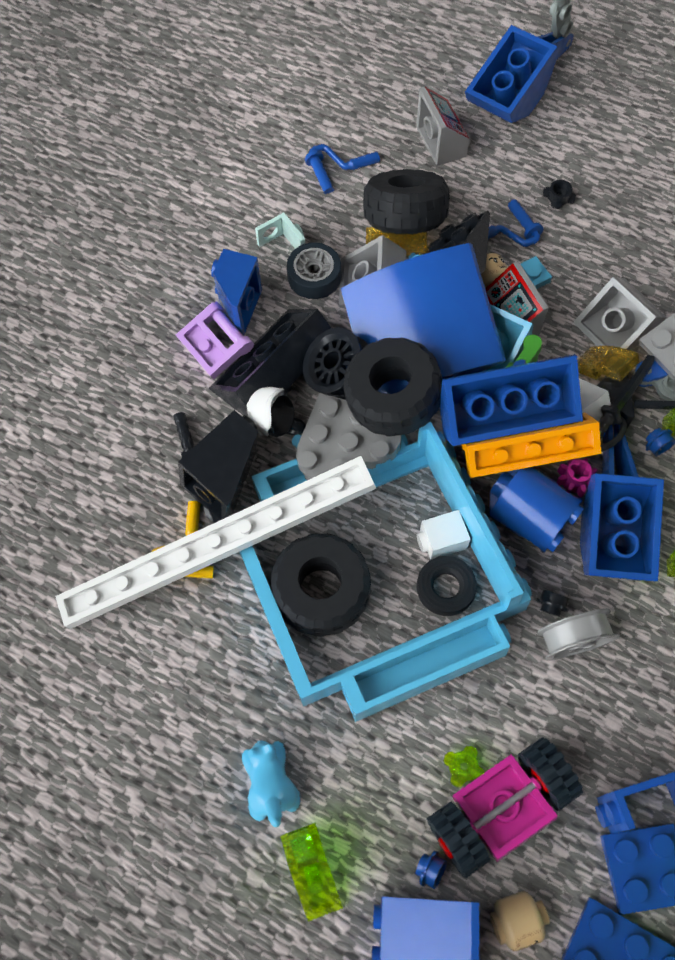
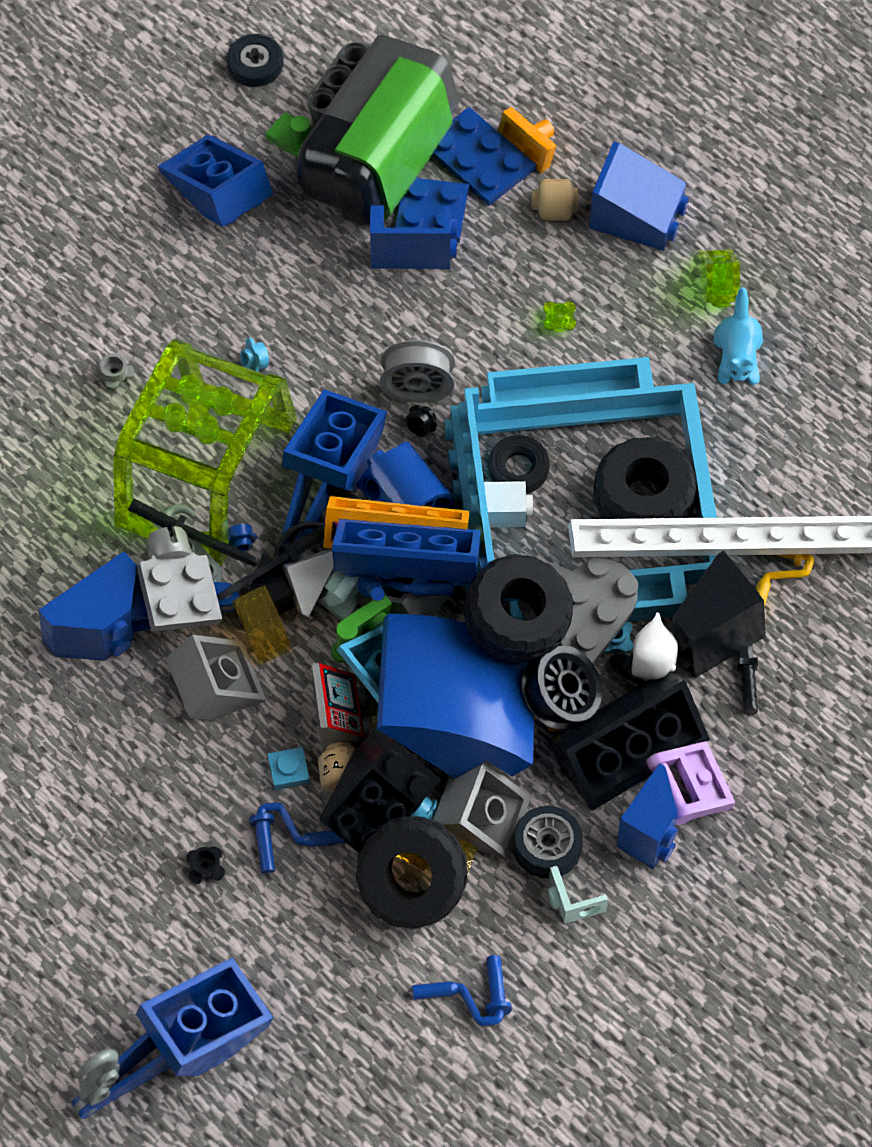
camera: 165 degrees left, 5 degrees down
(431, 869) = (616, 252): blue plate -> none
(441, 128) = (317, 986): light grey slope -> none
(505, 806) = (539, 269): plate -> none

